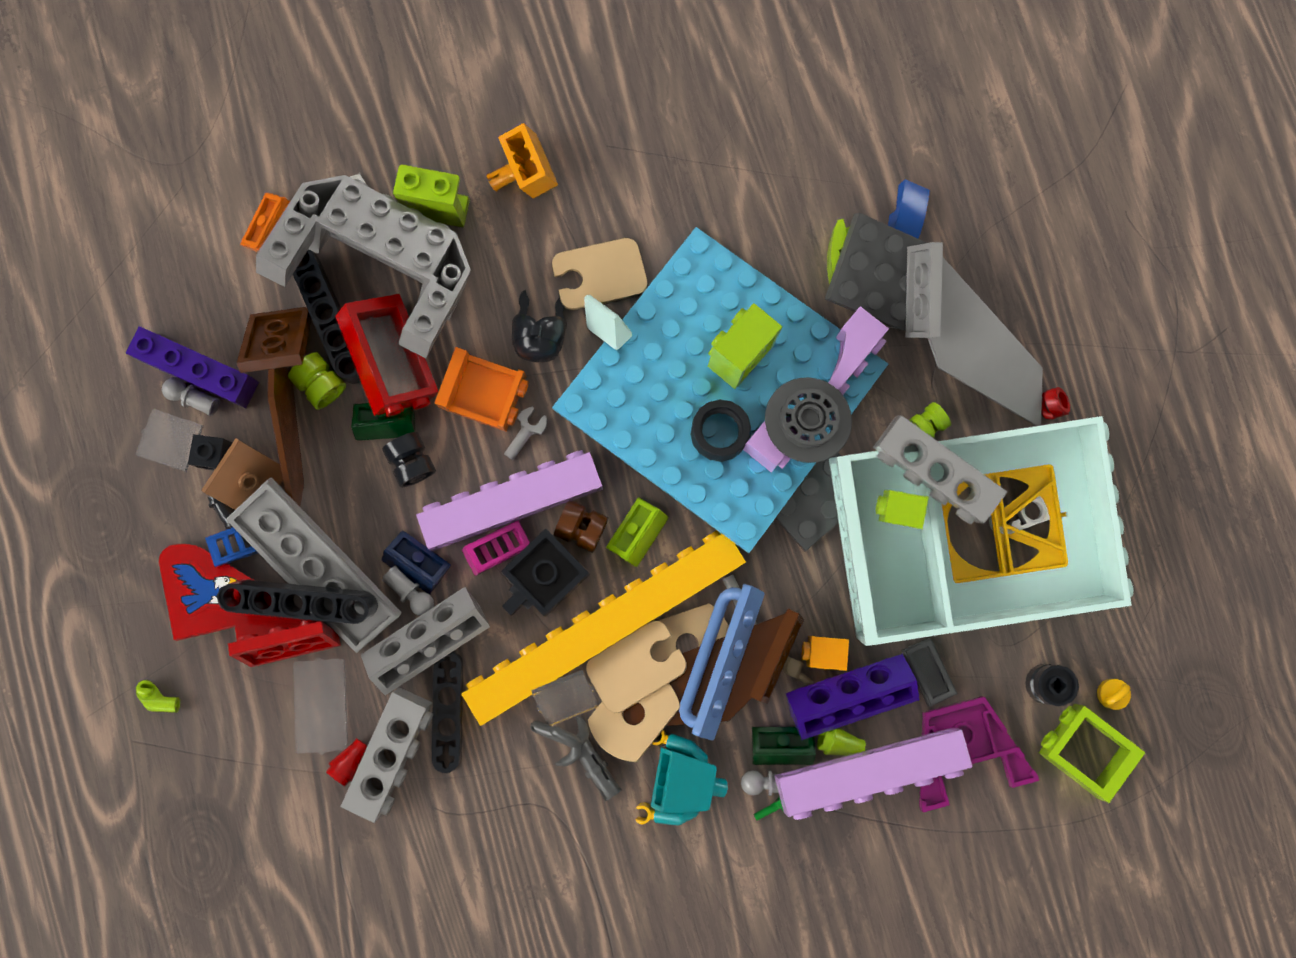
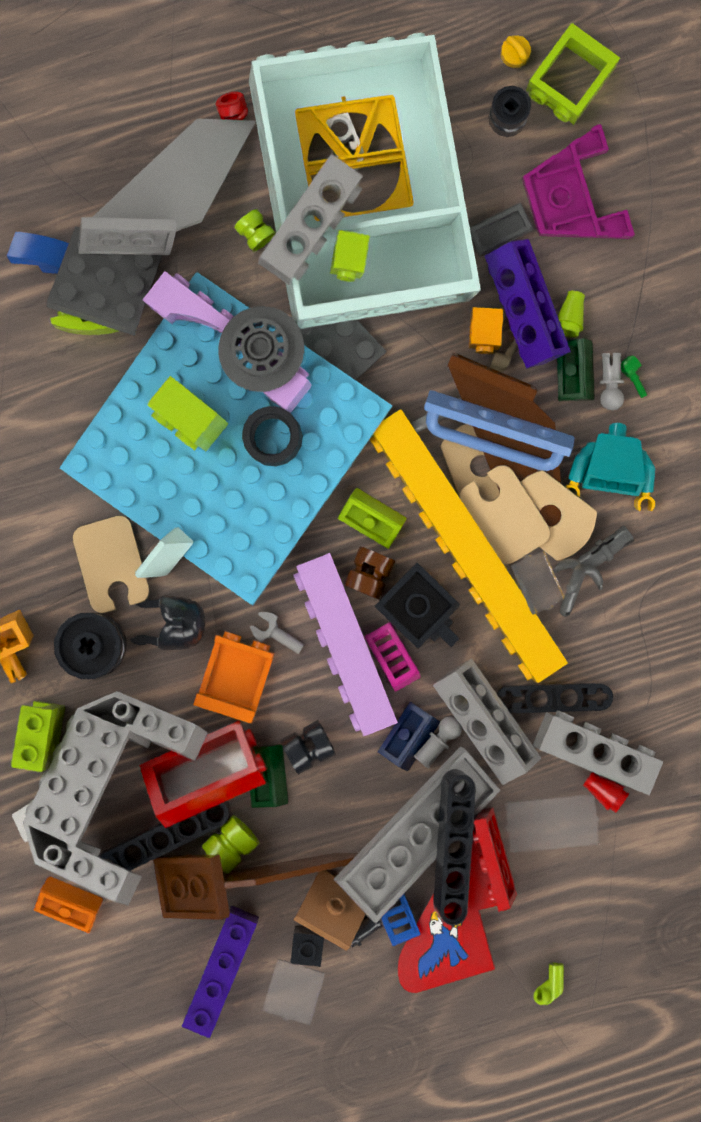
camera: 90 degrees left, 5 degrees up
(175, 389) = (243, 988): light grey pin -> none
(514, 233) = (72, 648): none -> black wheel
(873, 772) = (599, 282): lavender brick -> none

